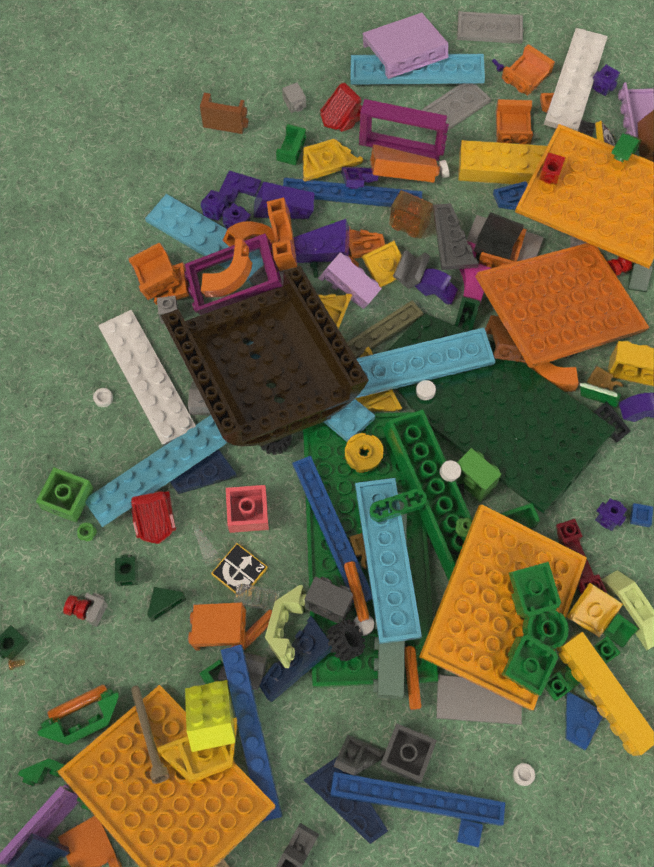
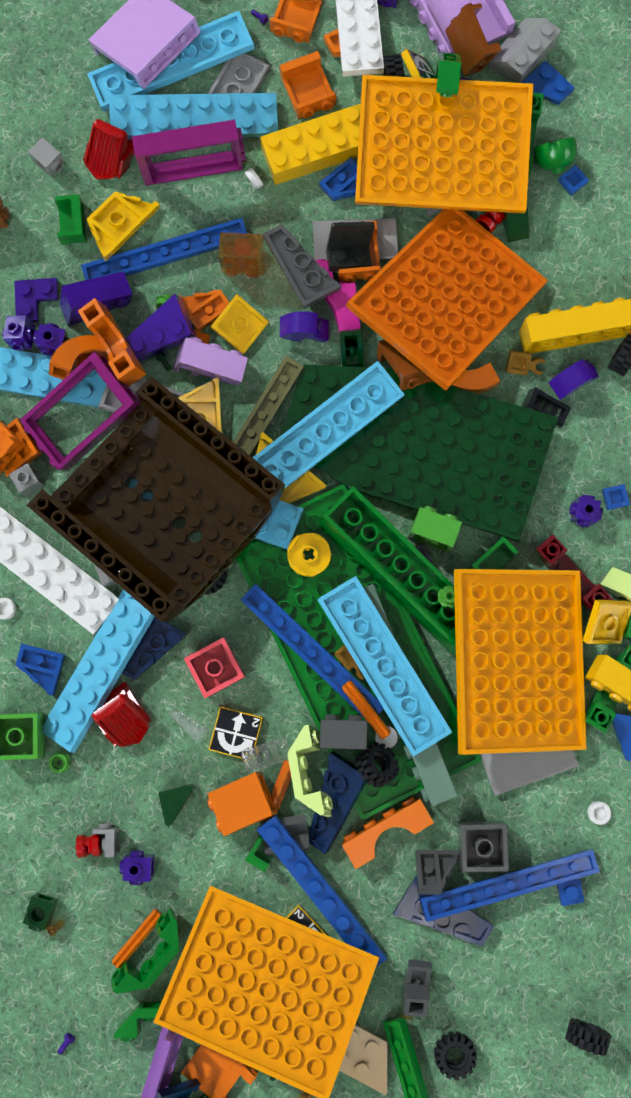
camera: 20 degrees left, 15 degrees up
(107, 641) = (145, 866): none -> dark purple brick
(109, 451) = (41, 666): none -> blue wing
(129, 578) = (117, 795): dark green brick -> none
(158, 771) = (252, 978): dark tan piece -> none
(199, 763) = (286, 938): yellow wing -> none
(209, 716) = (277, 903): neon yellow brick -> none
(233, 277) = (82, 418): orange arch -> none
(356, 176) = (159, 228): dark purple plate -> none
(356, 701) = (410, 816): none -> orange arch
(400, 497) = (380, 590): green beam -> none
(402, 165) = (206, 194): orange slope -> none
(410, 269) = (269, 319): dark grey panel -> none
(412, 678) = (456, 770): orange axle -> none
(425, 390) = (344, 457): white tile -> none
(450, 471) = (409, 542): white tile -> none
(462, 123) = (157, 113): none -> medium azure plate
(533, 653) = (566, 697): green plate -> none
(552, 162) = (381, 129): red brick -> none
(599, 394) = (525, 380): green slope -> none

